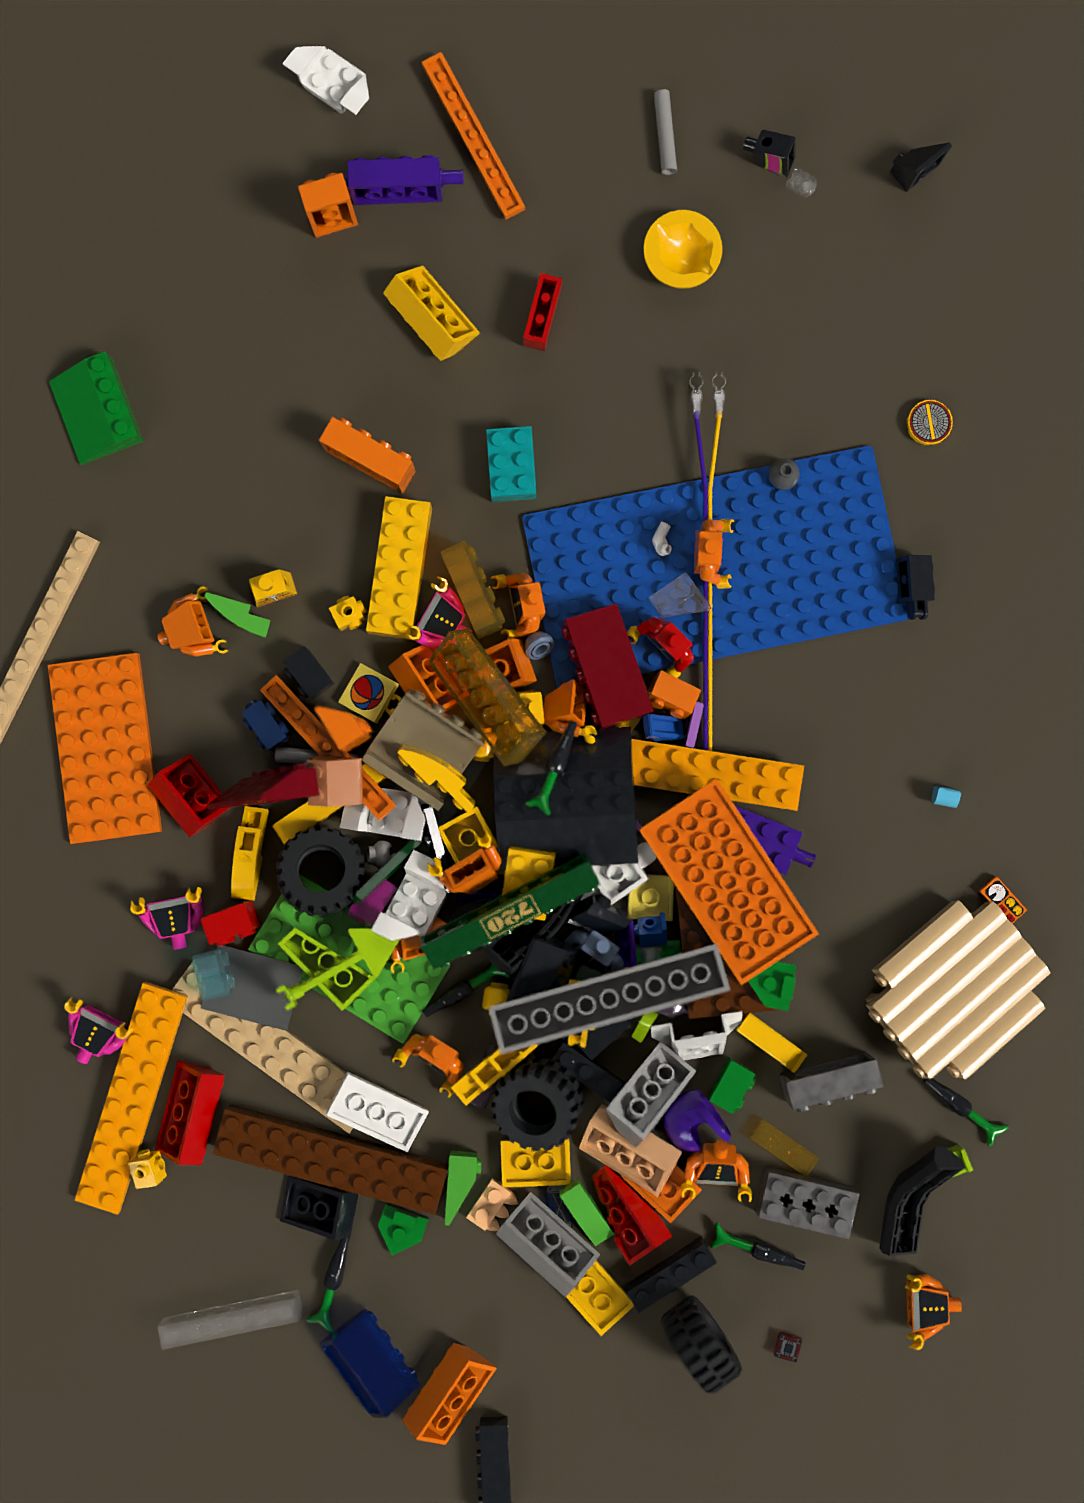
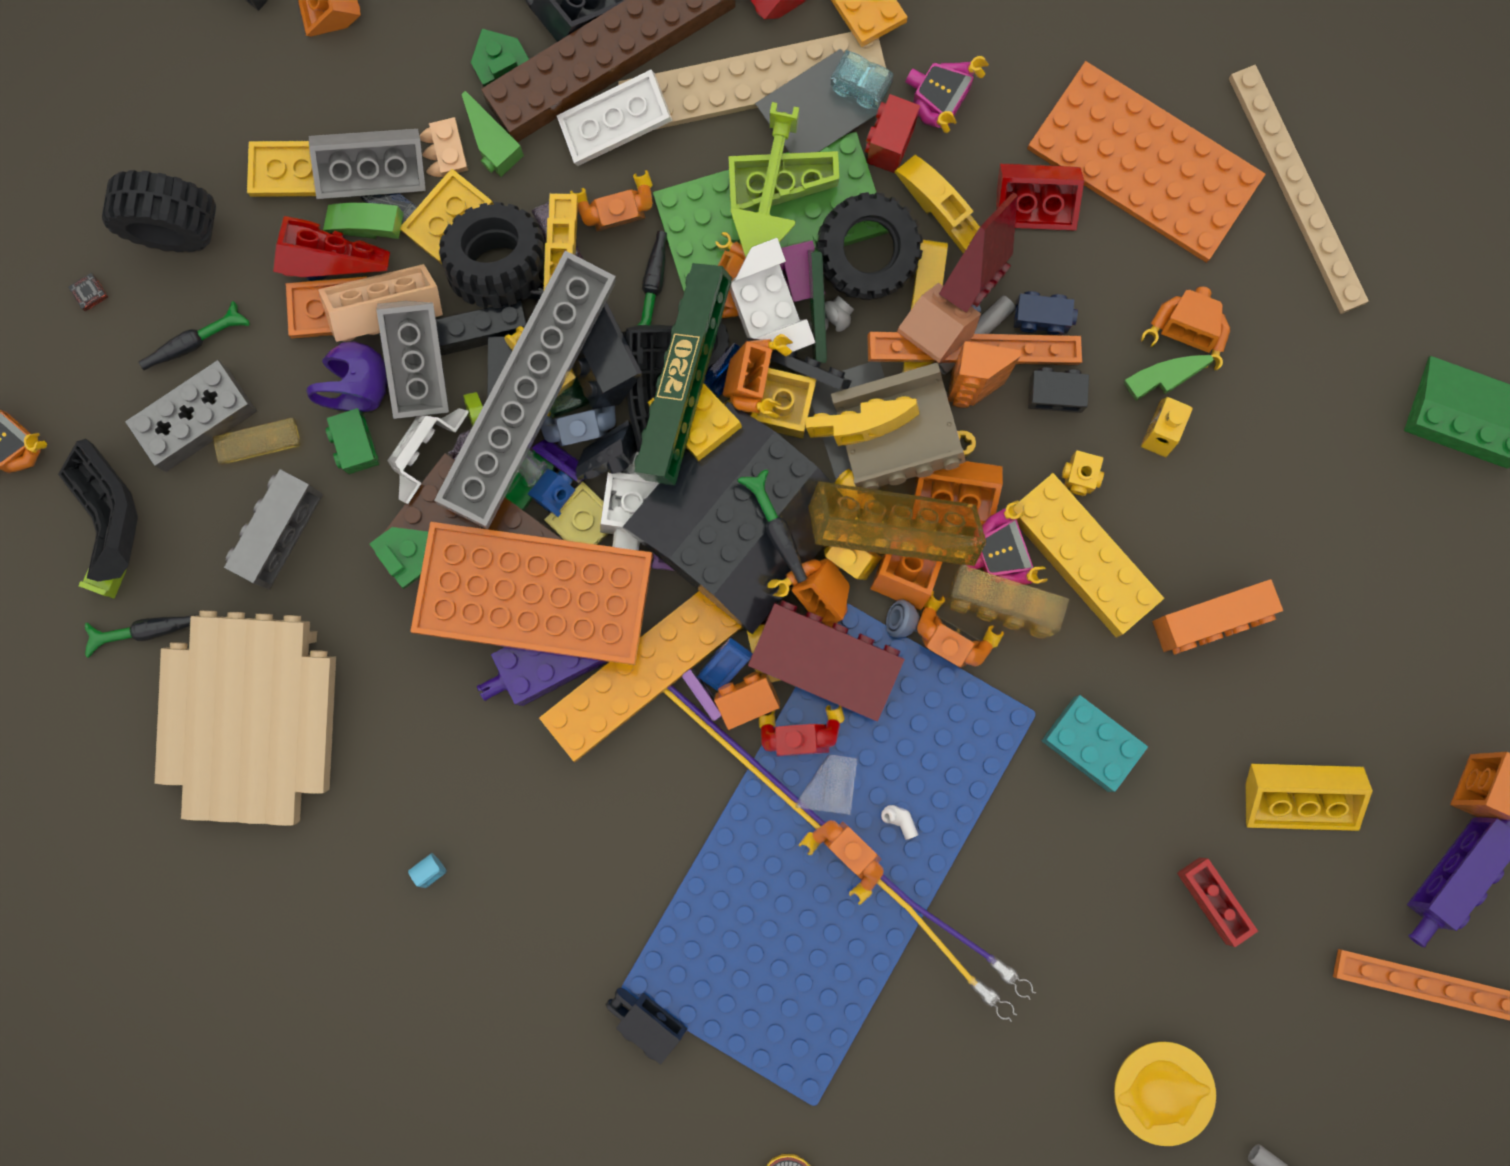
camera: 135 degrees right, 5 degrees down
(368, 693) = (992, 429): tile -> none
(403, 821) = (850, 355): white piece -> none
(494, 995) = (621, 305): yellow head -> none
(670, 1274) = (243, 245): black brick -> none
(717, 1165) = (295, 365): orange torso -> none
(771, 1042) = (357, 510): yellow piece -> none
(784, 474) = (861, 994): dark grey brick -> none
(1003, 897) = (286, 838): tile -> none

